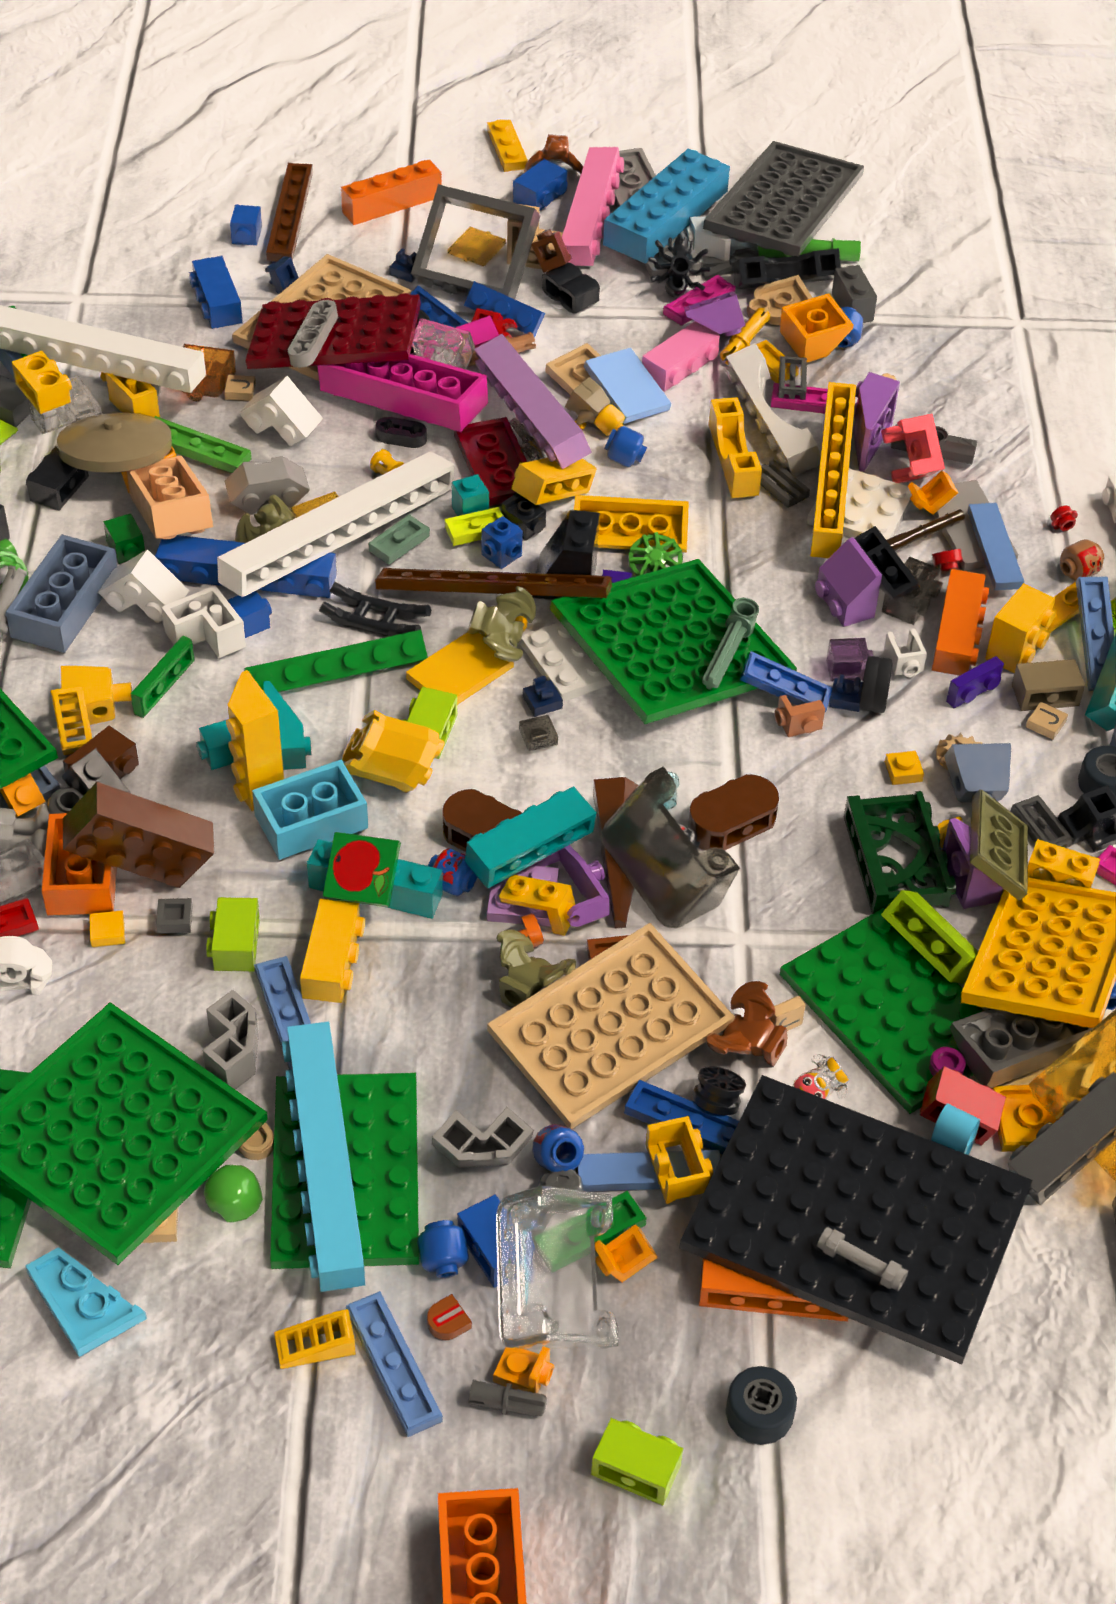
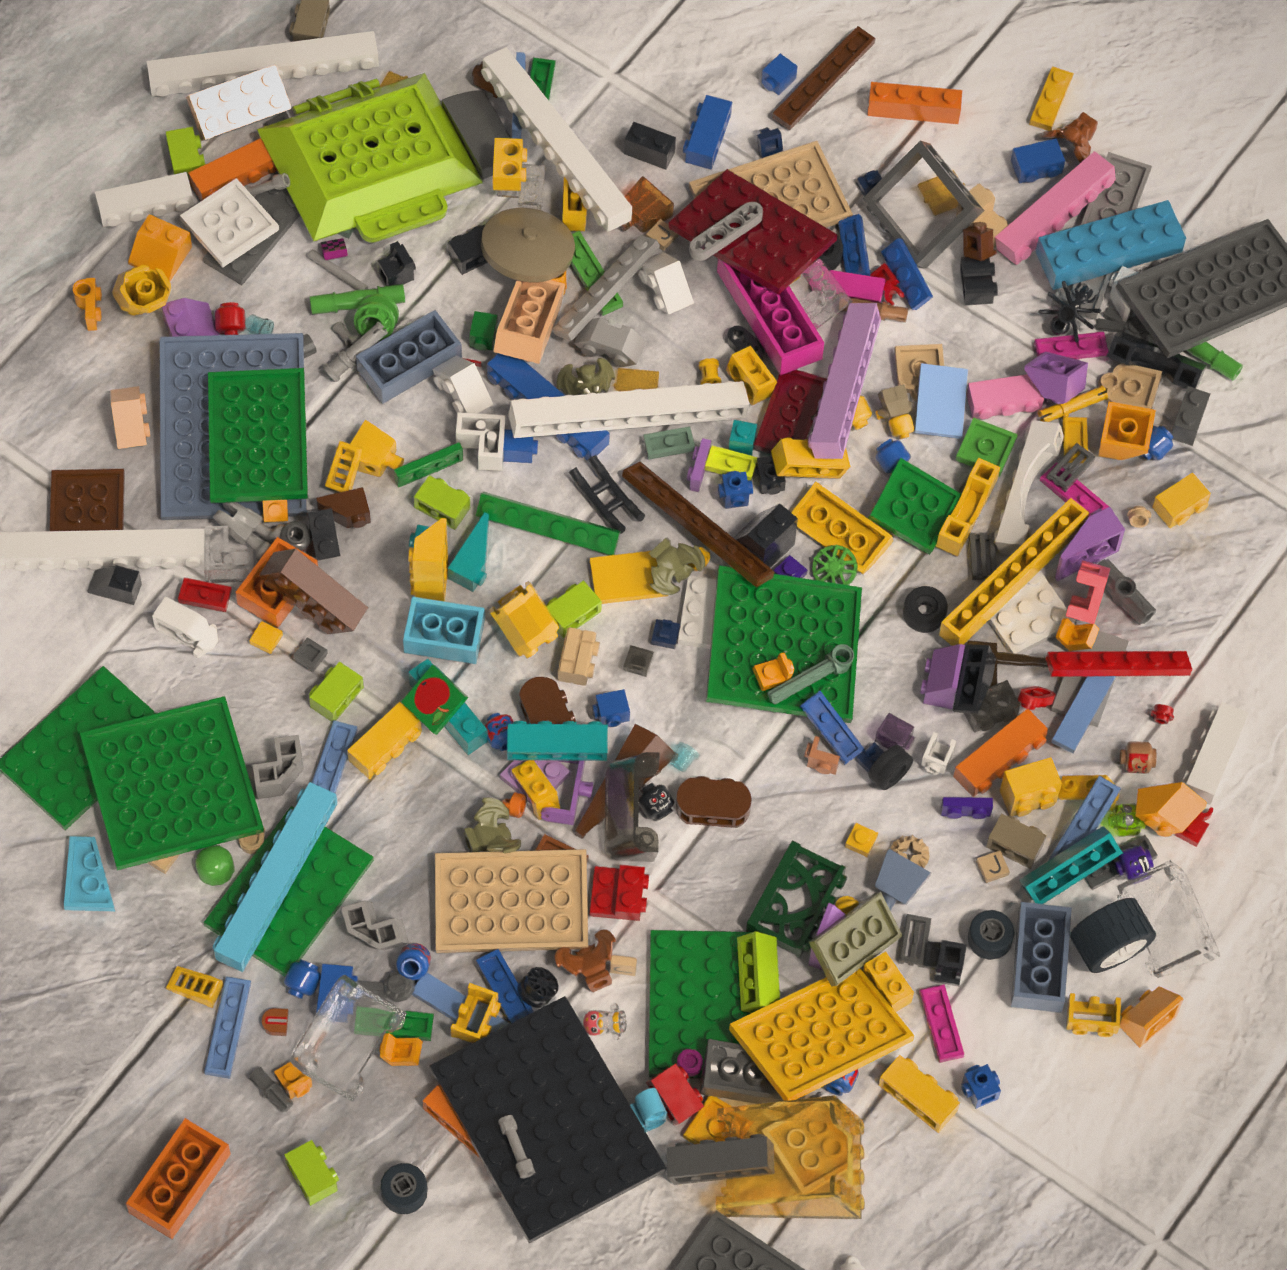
camera: 35 degrees right, 15 degrees up
(169, 322) = (649, 145): none -> black brick
(202, 700) = (442, 501): none -> lime brick
(226, 440) = (606, 287): none -> light grey plate
(425, 436) = (750, 369): none -> yellow brick
(448, 542) = (696, 473): none -> medium lavender plate
(472, 759) = (577, 656): none -> tan brick
(549, 780) = (611, 708): none -> blue brick
(685, 471) = (914, 506): none -> green plate
(692, 658) = (774, 672): none -> light orange bracket
(694, 398) = (987, 443): none -> bright green plate
(718, 949) = (619, 892): none -> red plate
(774, 535) = (925, 596): none -> black tyre
(912, 356) = (1181, 501): none -> yellow brick
(990, 494) = (1119, 663): none -> red plate

